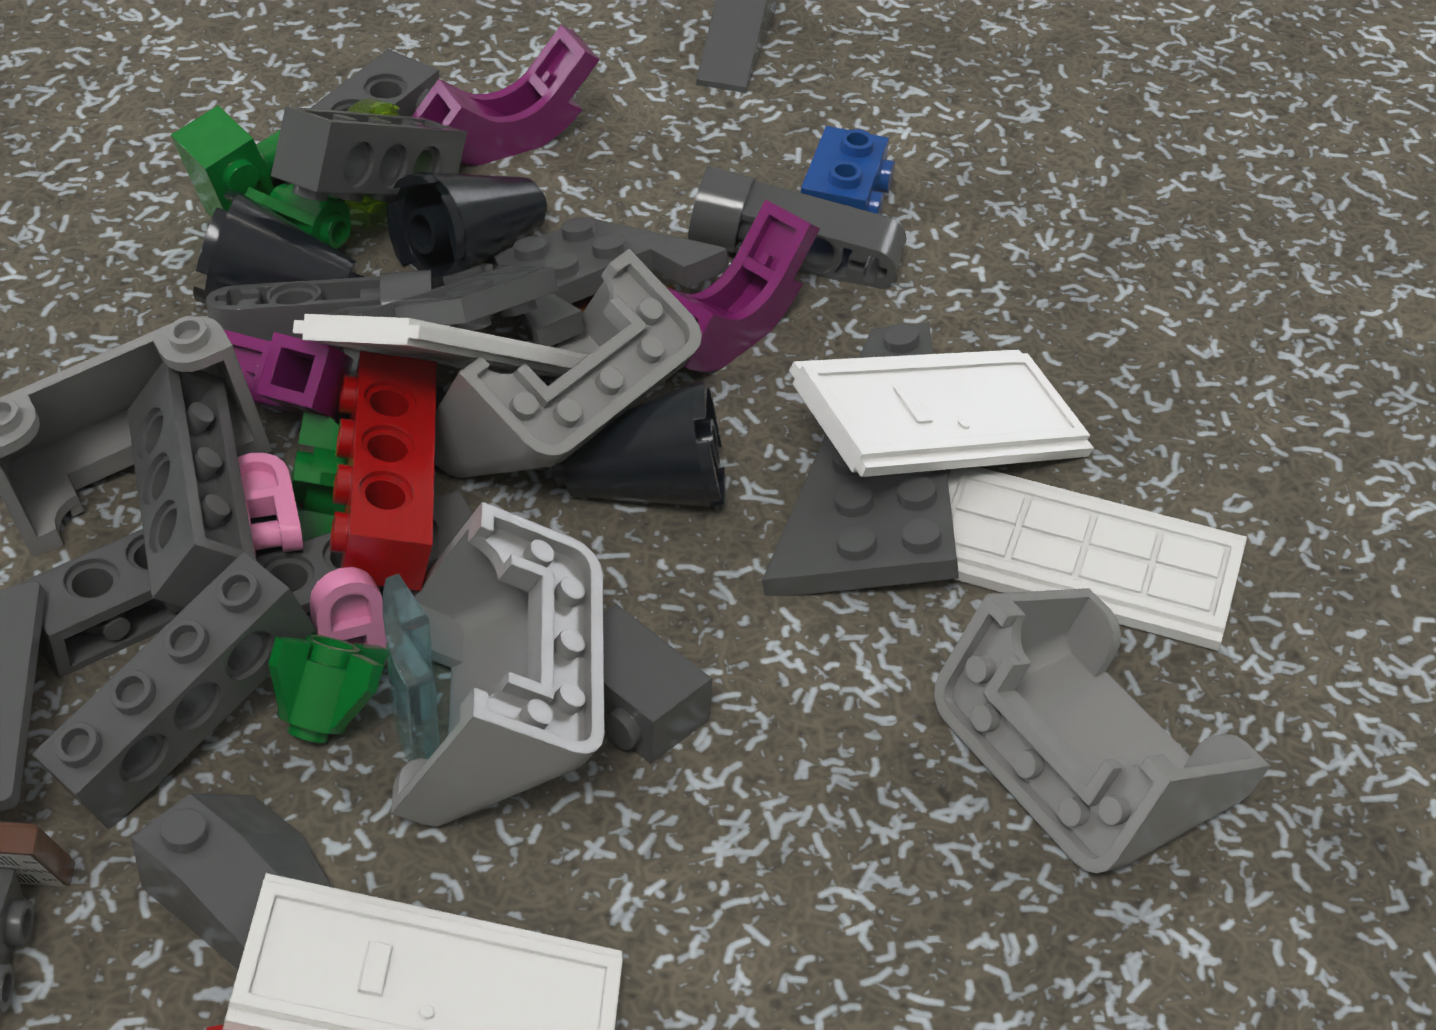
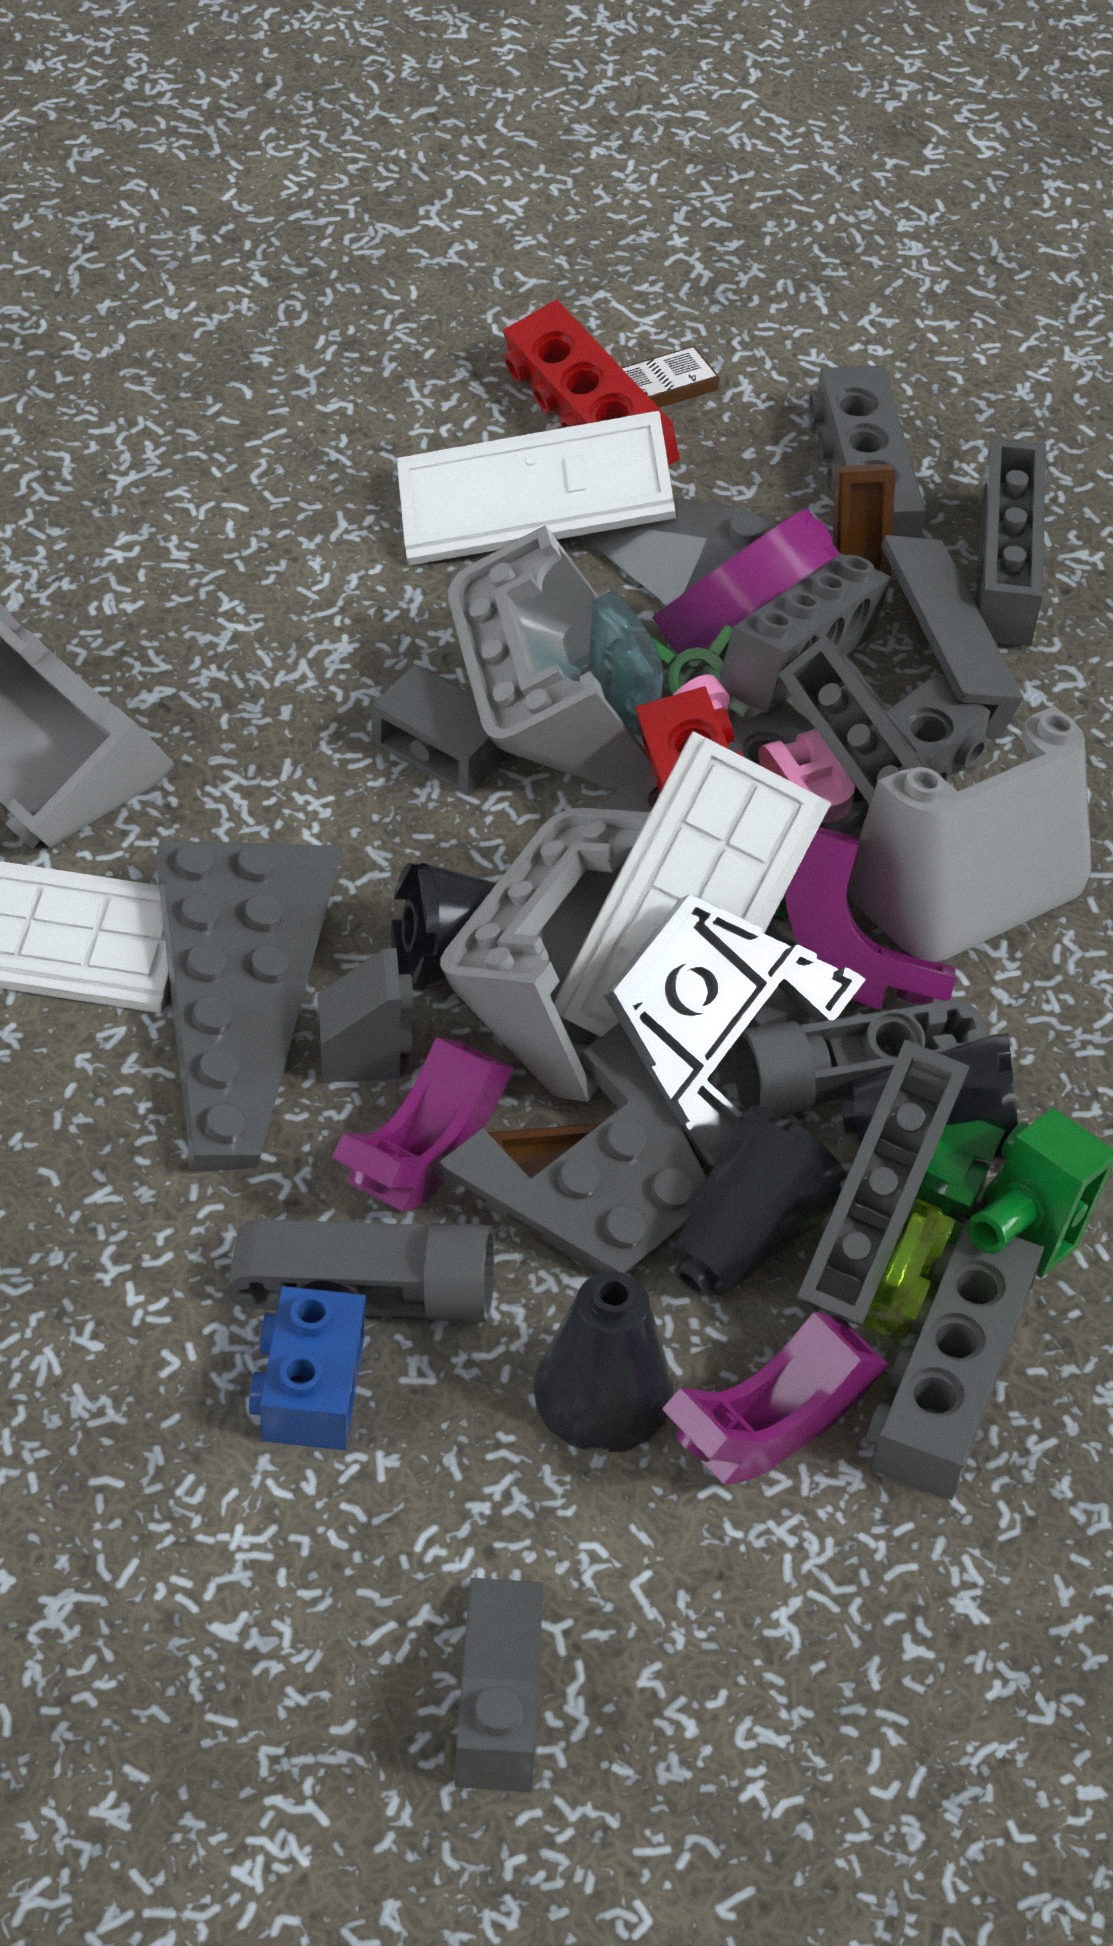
camera: 170 degrees right, 5 degrees up
(198, 741) = (747, 582): none -> magenta arch
(623, 135) = (605, 1368): none -> black cone
(764, 389) = (363, 1021): none -> dark grey slope
(939, 411) = (175, 995): white piece -> none

